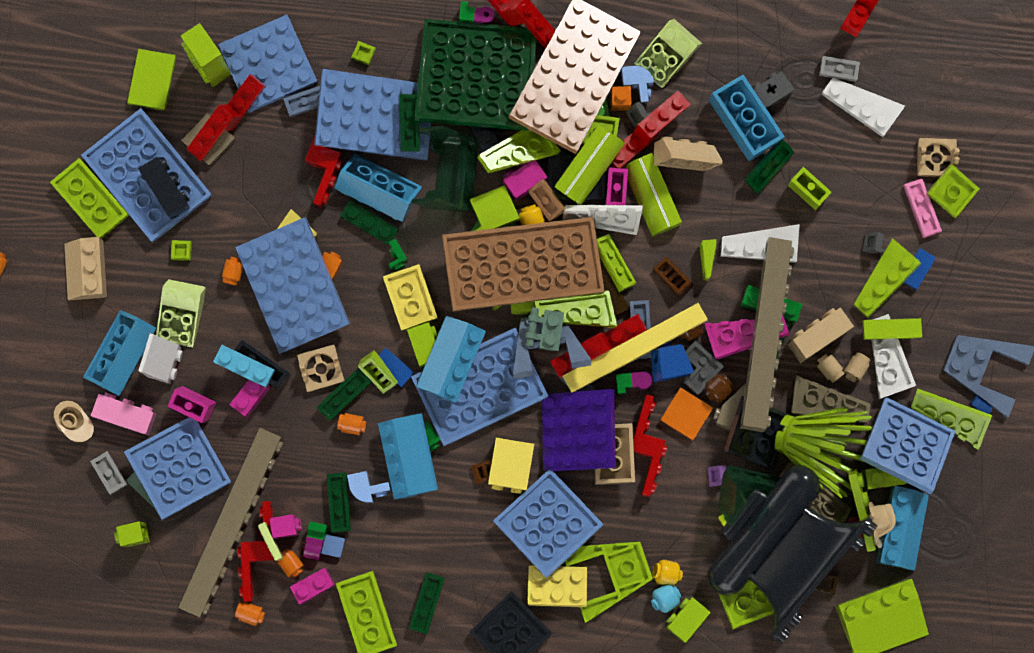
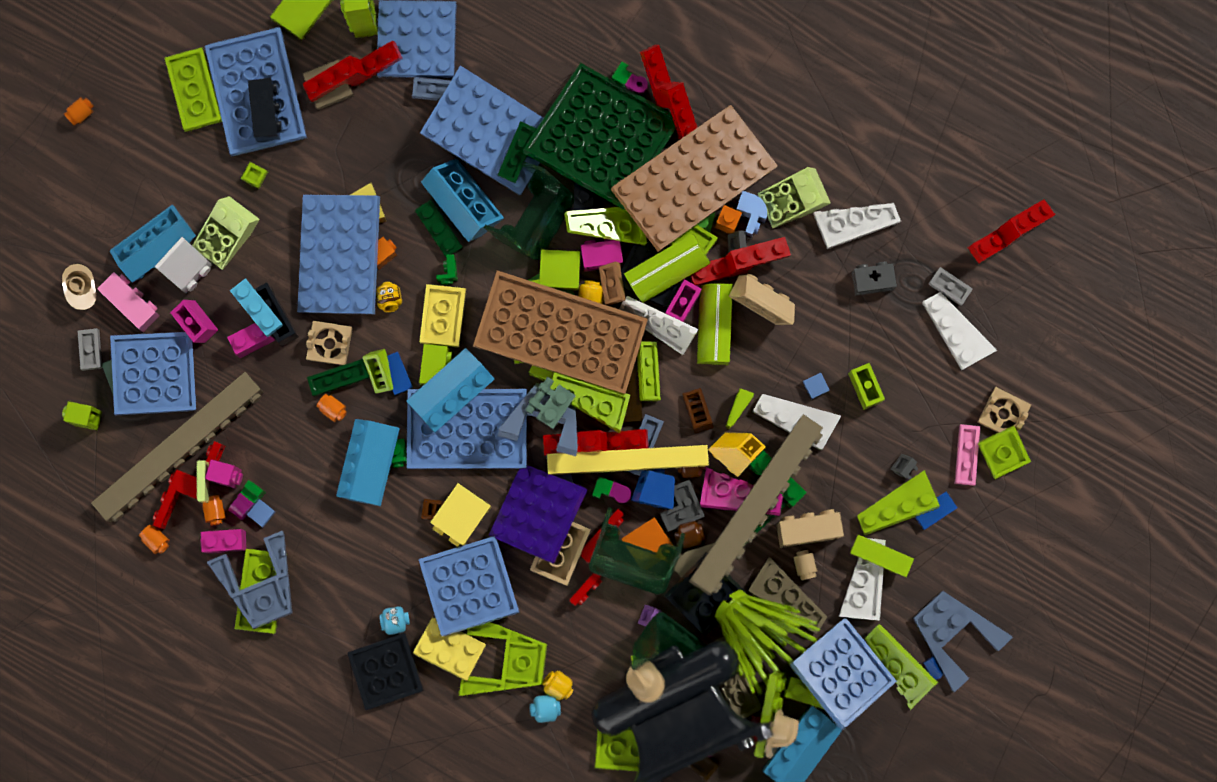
camera: 30 degrees right, 0 degrees up
(85, 269) = (159, 152): tan slope -> none
(232, 271) = (290, 216): orange brick -> none
(330, 162) = (429, 157): red bracket -> none
(338, 502) = (285, 475): dark green plate -> none
(354, 303) = (388, 297): none -> yellow head
(361, 488) = (312, 473): light blue brick -> none
(363, 53) = (509, 69): lime tile -> none
(378, 617) = (267, 599): none -> sand blue wing
(426, 603) = (321, 607): dark green plate -> none
(497, 584) = (394, 620): none -> medium azure head
(683, 436) = (632, 563): none -> clear green windscreen
(687, 619) = (556, 738): lime brick -> none
(725, 55) = (849, 224): none -> white wing
(725, 296) = (736, 450): none -> yellow slope
(745, 117) = (838, 292): dark azure slope -> none
(745, 533) = (646, 682): none -> tan piece
(765, 208) = (816, 386): none -> medium blue tile
(769, 166) = (838, 347): dark green plate -> none
(857, 367) = (831, 576): tan brick -> none

